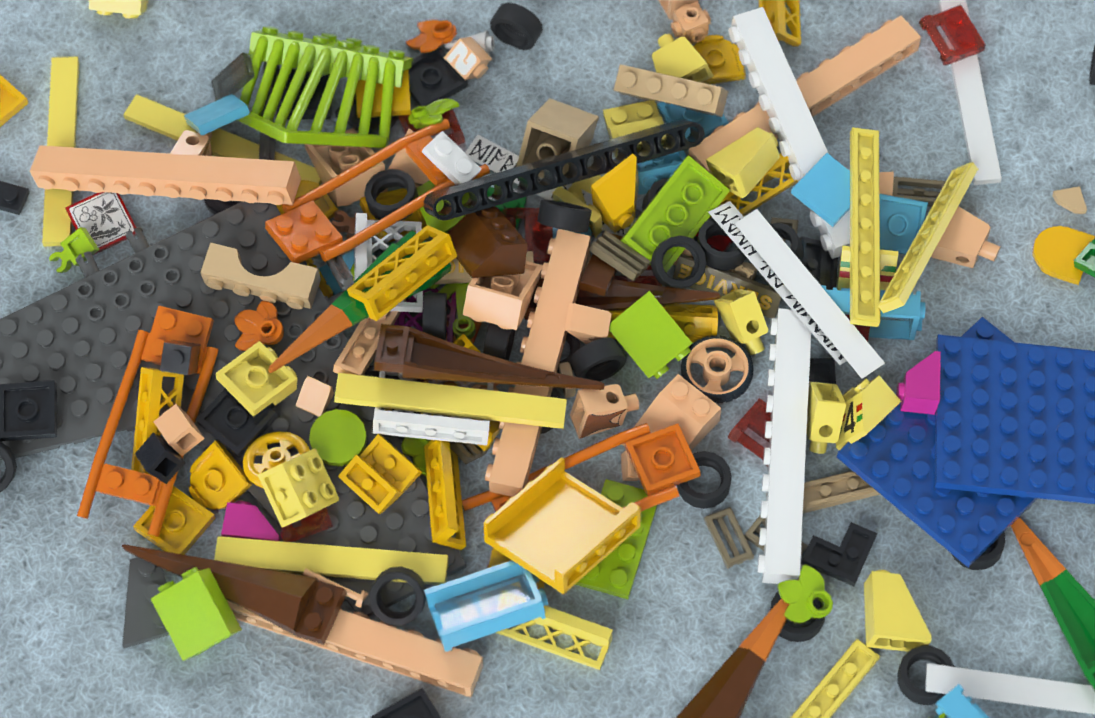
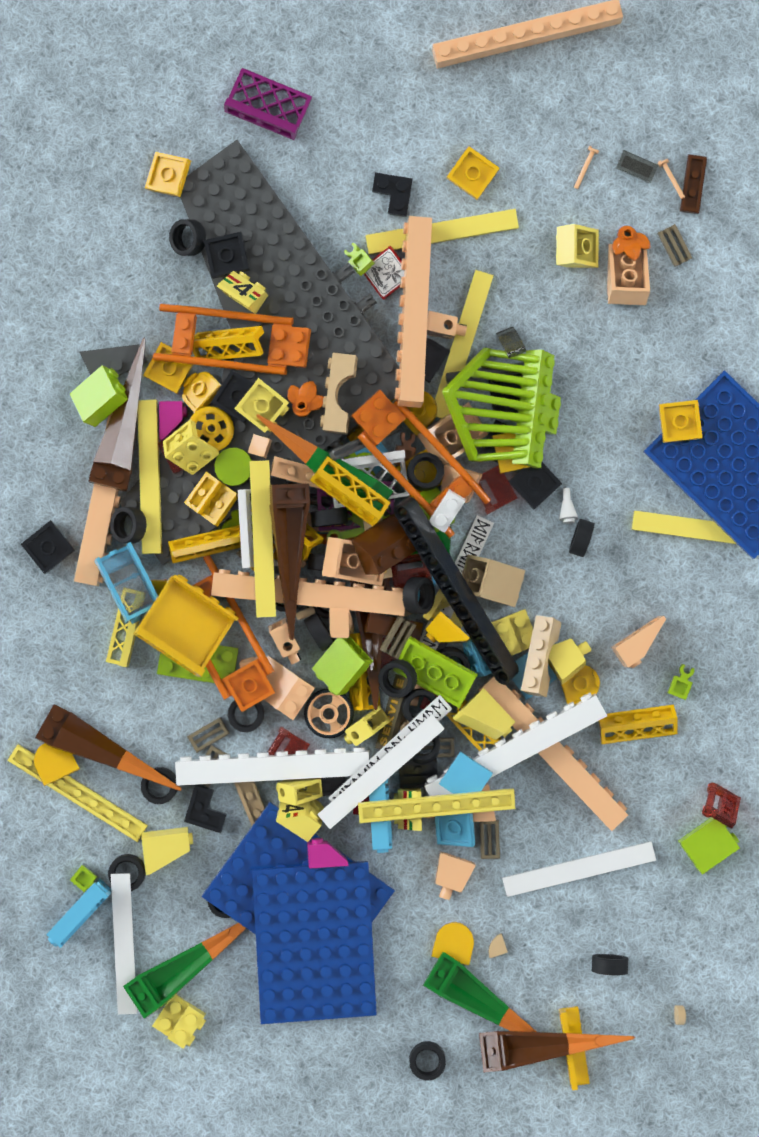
camera: 80 degrees right, 25 degrees up
(87, 389) = (243, 291): none -> light yellow slope
(159, 458) = (198, 351): black brick -> none
(178, 430) = (219, 360): light nougat brick -> none
(180, 357) = (267, 351): black brick -> none
(217, 114) = (476, 336): medium azure tile -> none
(358, 597) = (131, 483): light nougat piece -> none
(431, 114) = (498, 489): lime plate -> none
(432, 35) = (568, 476): orange plate -> none
(468, 58) = (550, 507): light nougat brick -> none
(691, 22) = (596, 663): light nougat brick -> none
(802, 592) = (162, 787): lime plate -> none
(927, 238) = (439, 850): light yellow tile -> none
(958, 30) = (622, 859): clear red plate -> none

